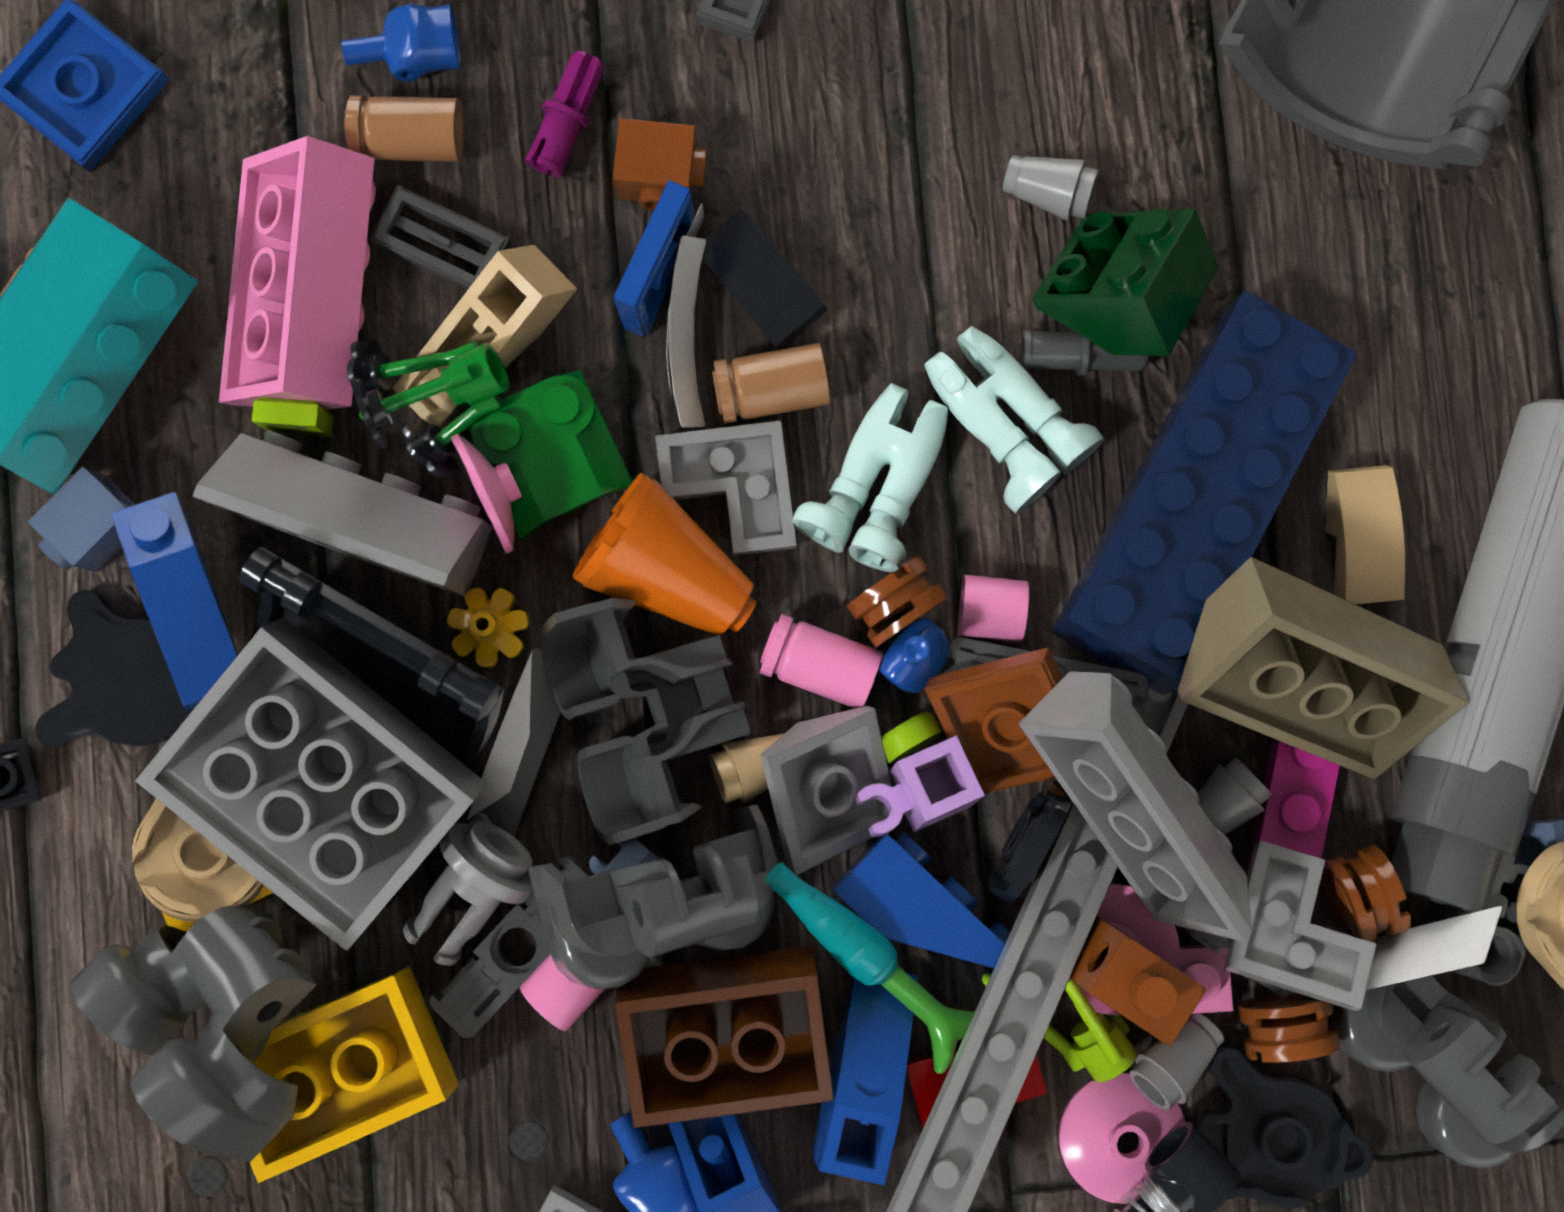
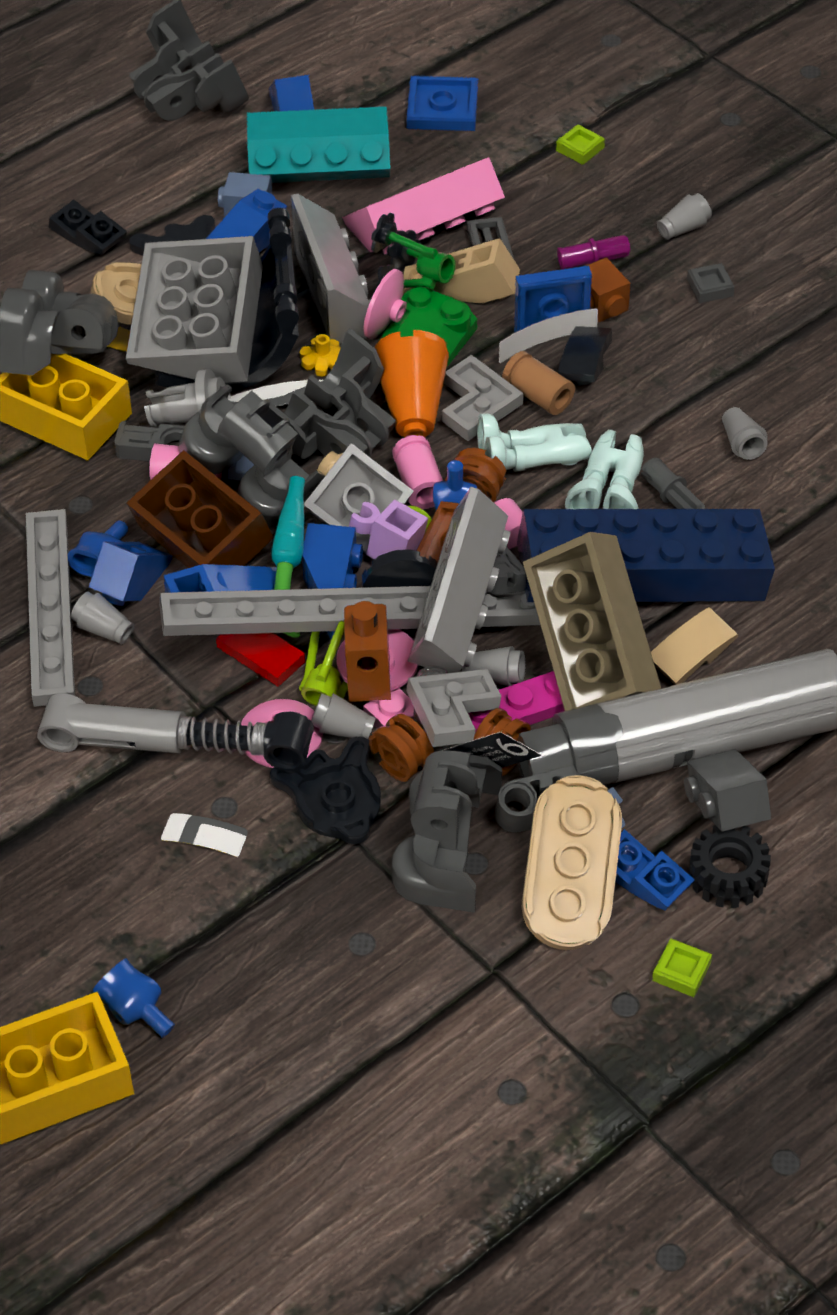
camera: 60 degrees right, 35 degrees down
(292, 417) = (359, 236): lime tile -> none
(405, 128) = (530, 204): medium nougat piece -> none
(412, 42) = (574, 189): blue piece -> none
(682, 331) = (535, 335): white sticker -> none
(1130, 279) = (724, 472): dark green slope -> none

